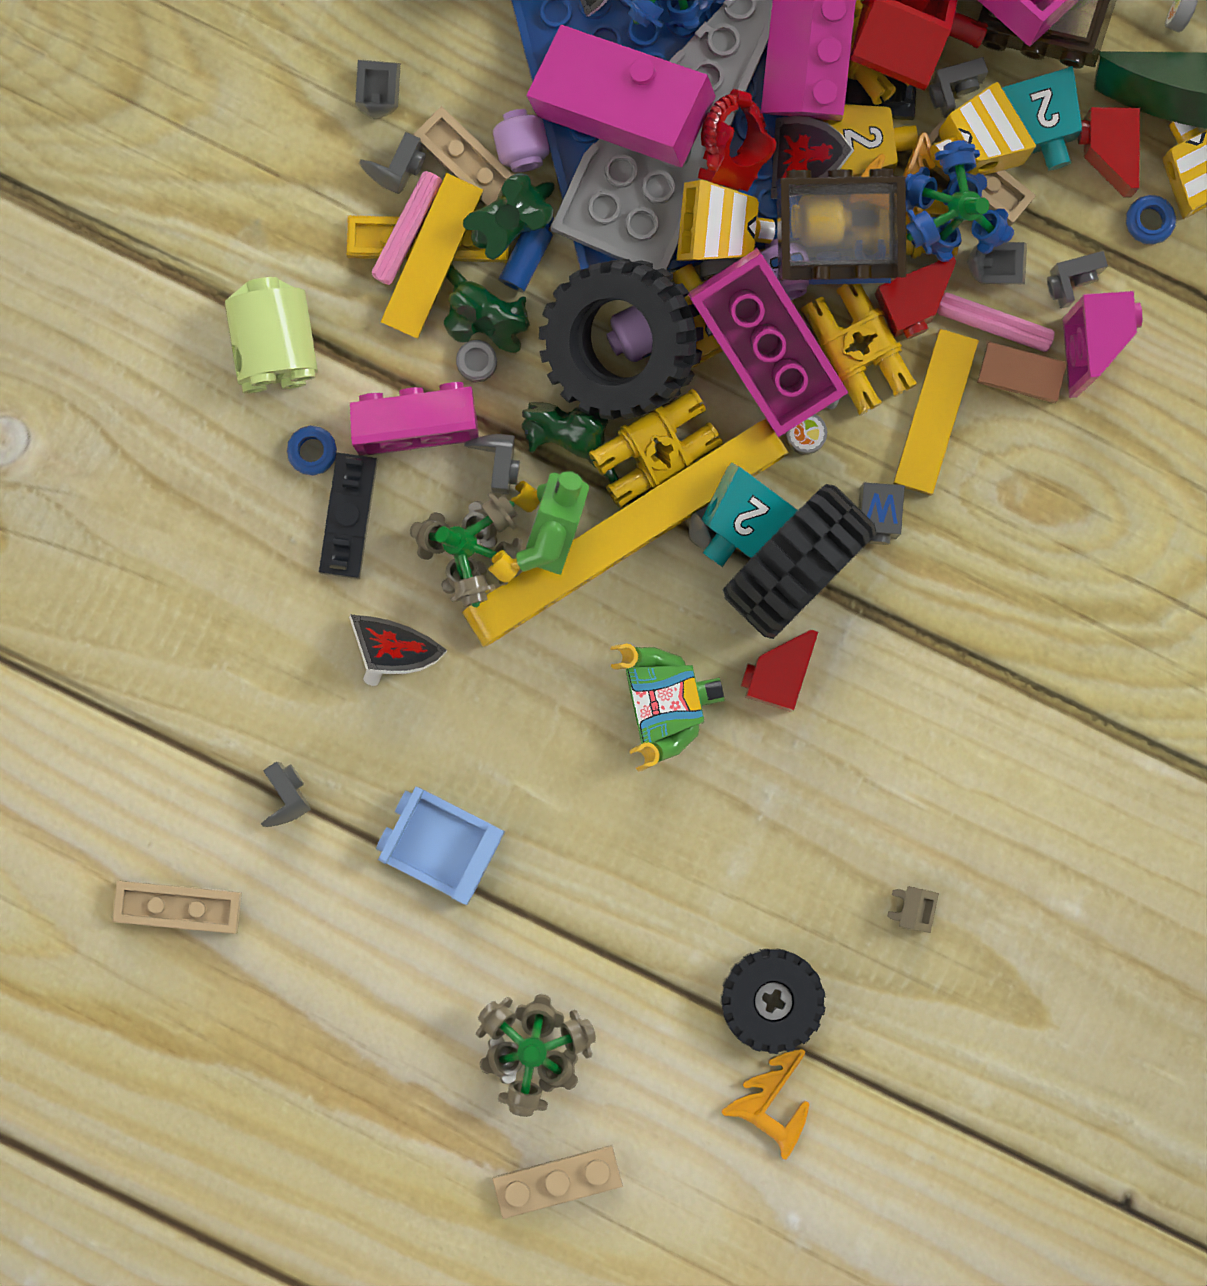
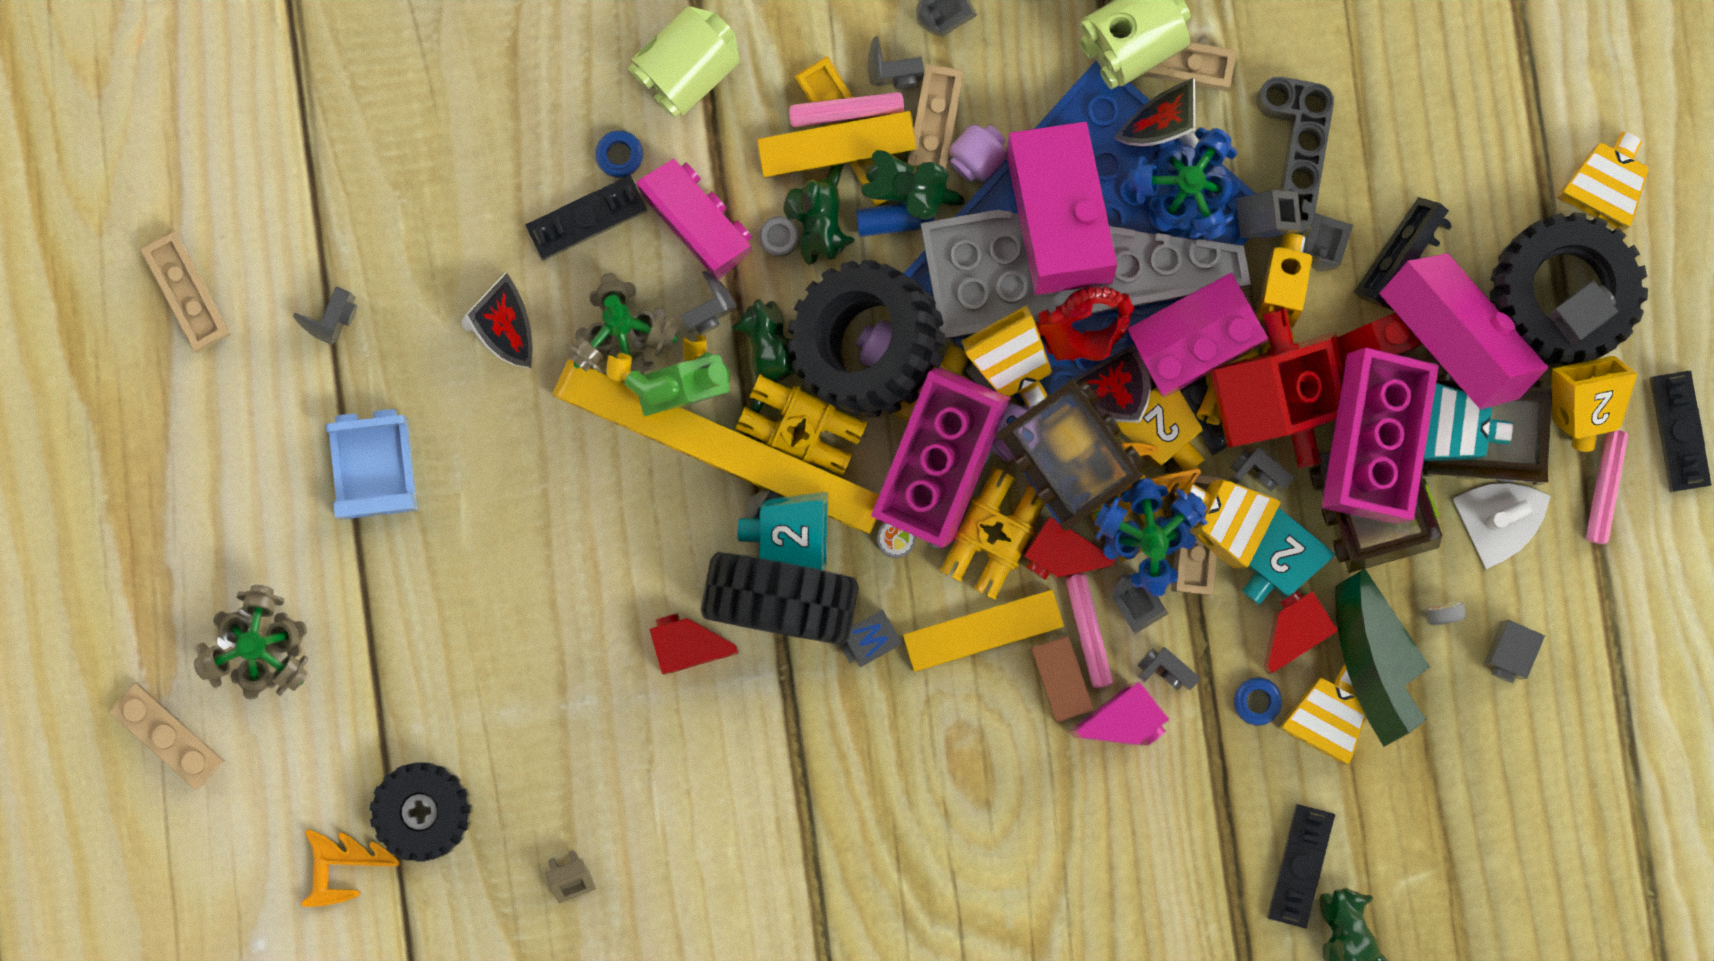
camera: 55 degrees right, 0 degrees up
(665, 700) = (602, 567): torso -> none

